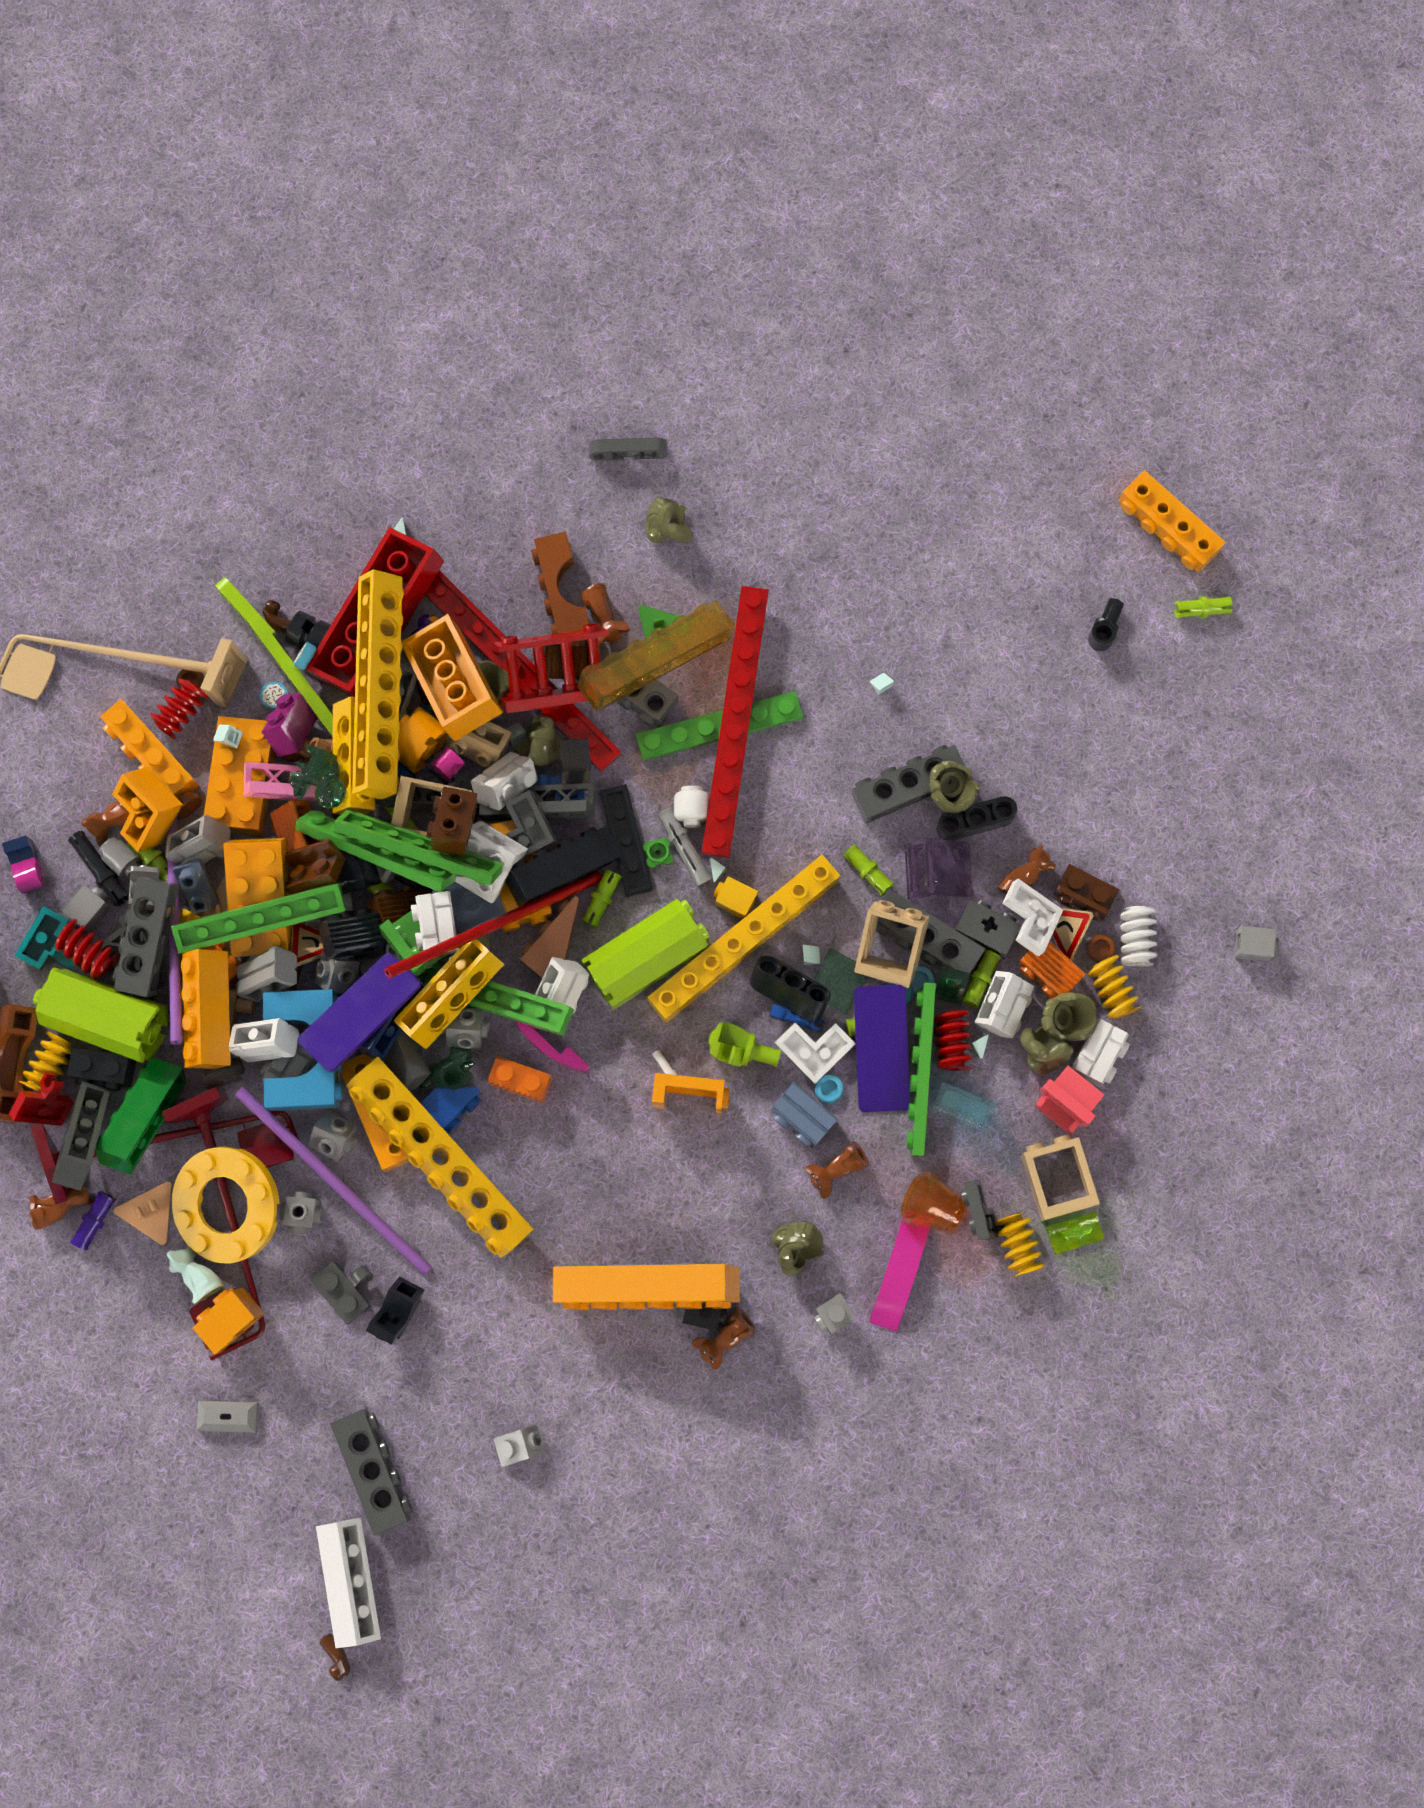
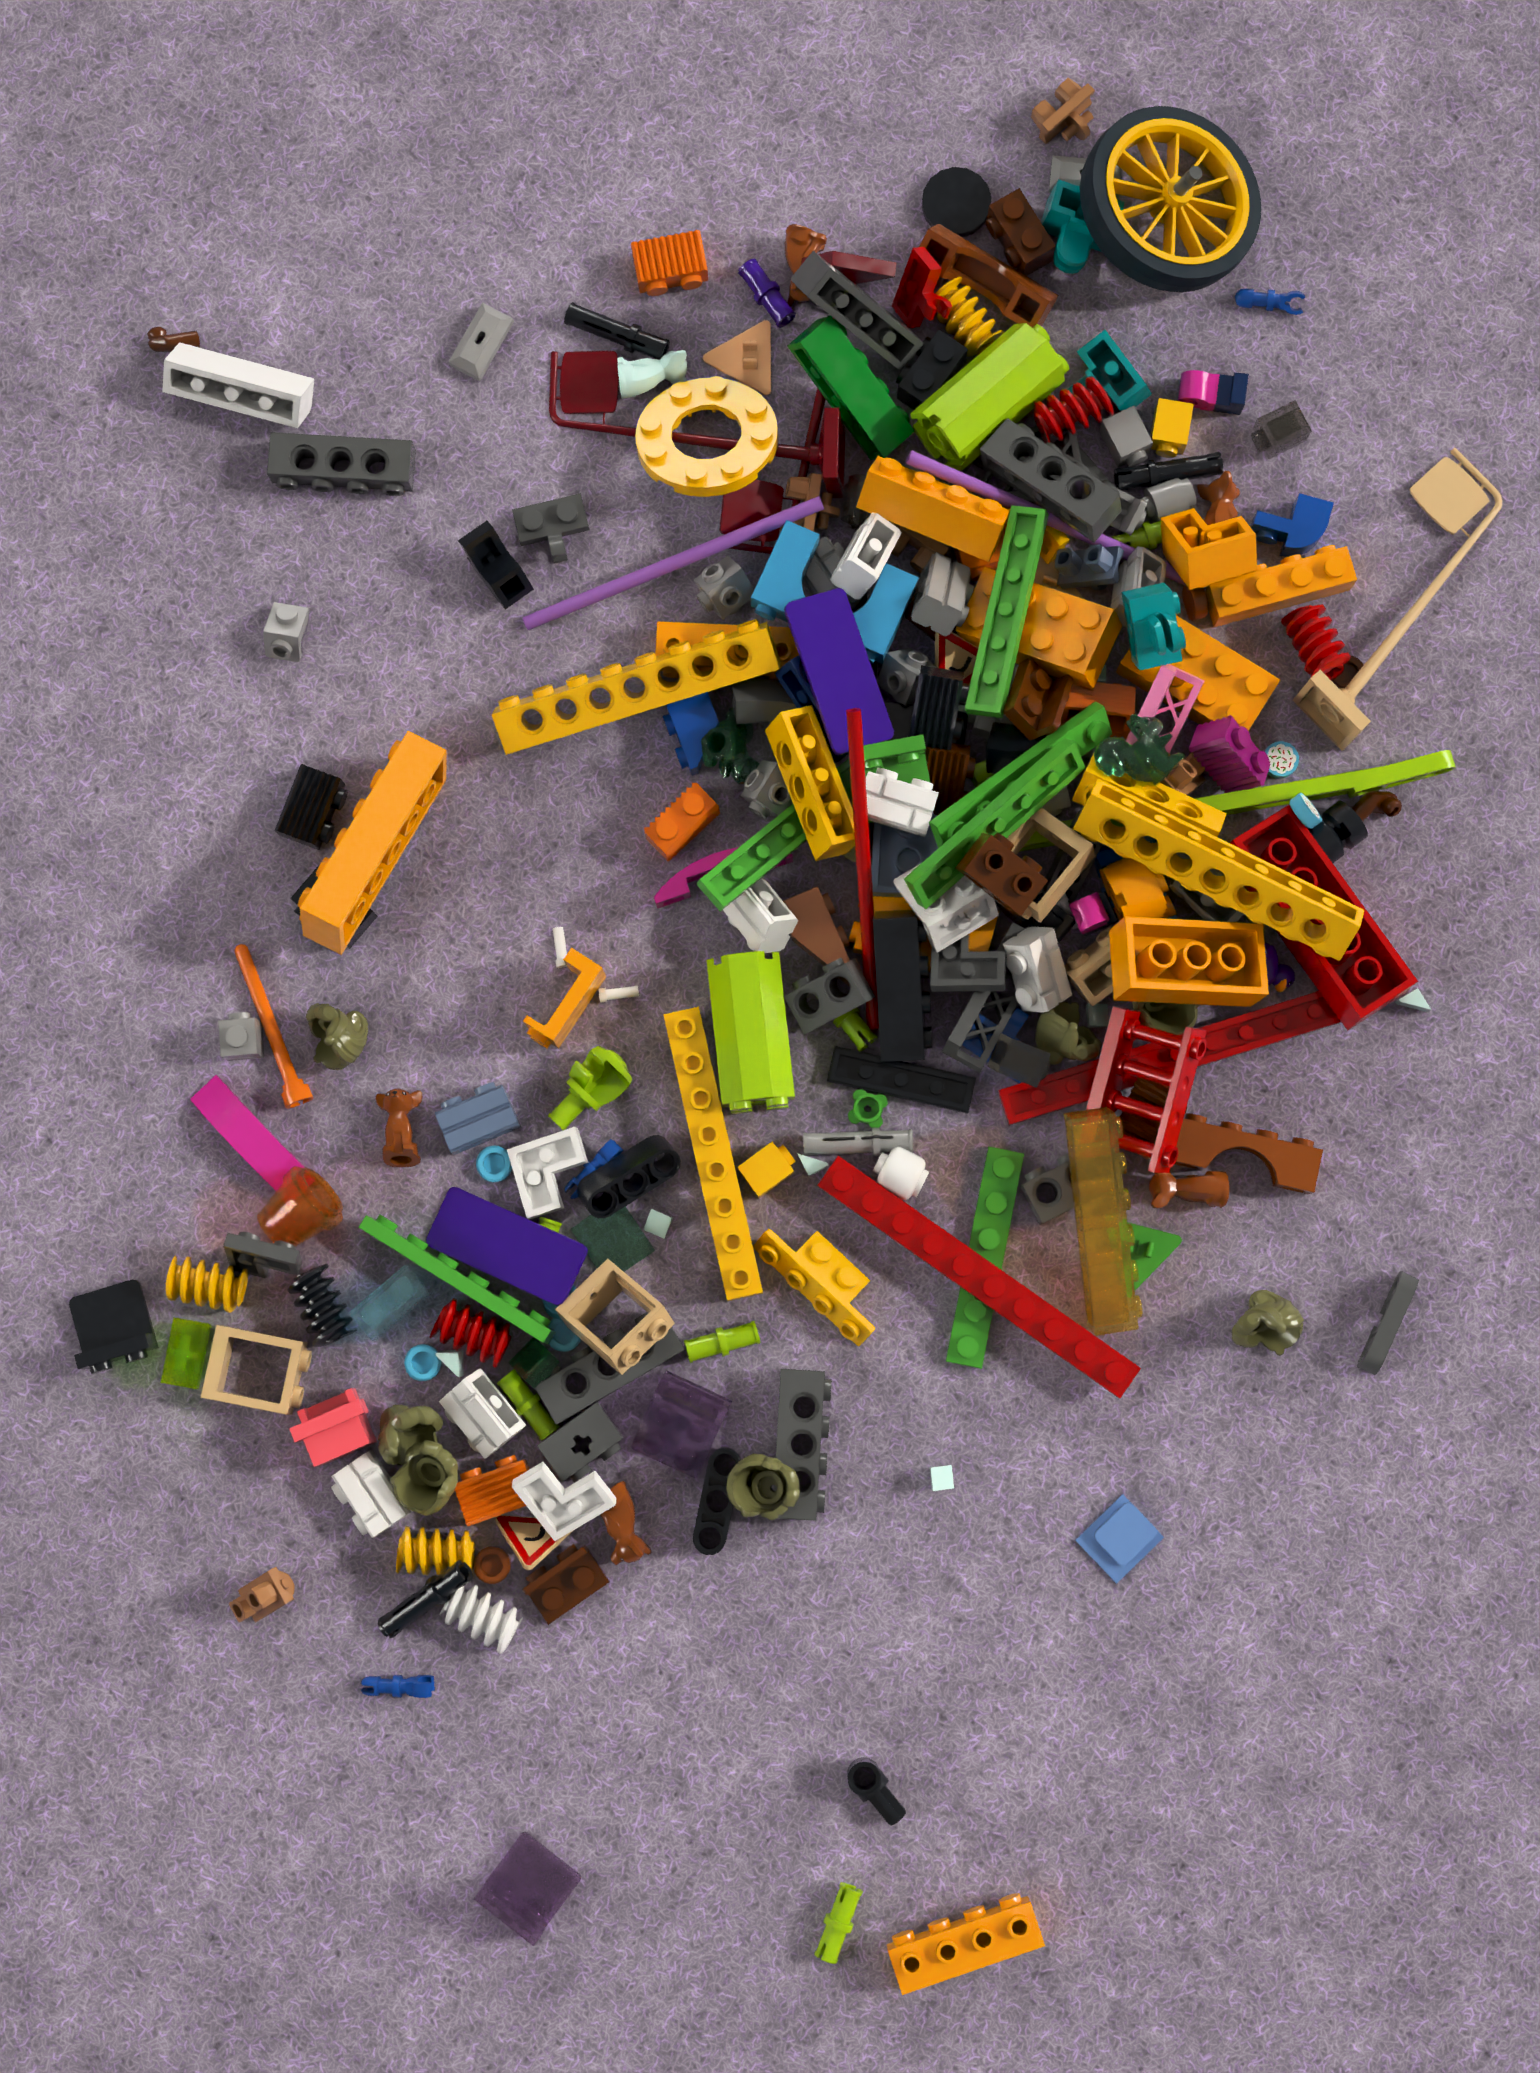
camera: 120 degrees right, 5 degrees up
(33, 804) = (1280, 430): none -> clear smoke brick
(64, 880) = (1171, 427): none -> yellow brick
(100, 756) = (1301, 531): none -> blue brick
(102, 1303) = (670, 262): none -> orange brick
(173, 1317) = (628, 336): none -> black pin
(222, 811) = (1153, 626): none -> teal brick
(227, 1319) = (580, 384): light orange brick -> none
(228, 735) = (1248, 677): light aqua piece -> none
(233, 1110) = (805, 489): none -> medium nougat hips
(311, 1217) = (658, 526): light grey brick -> none
(597, 904) = (831, 1000): none -> dark grey brick
(642, 1354) = (311, 807): none -> black brick
(661, 1116) = (560, 946): none -> white piece
(729, 1336) = (279, 913): dark orange animal -> none
(790, 823) = (822, 1277): none -> yellow bracket
(850, 1257) = (294, 1088): none -> orange piece
(859, 552) = (1119, 1538): none -> medium blue piece
(991, 1066) = (422, 1362): none -> medium azure tile
(991, 1154) = (320, 1306): none -> black piece
(1085, 1297) = (112, 1326): none -> black bracket
(1140, 971) = (436, 1591): none -> black pin
(1208, 955) = (416, 1686): none -> blue piece
(1208, 1089) = (263, 1595): none -> medium nougat hips
(1256, 943) = (400, 1750): light grey brick -> none
(1296, 815) = (528, 1887): none -> clear purple bracket

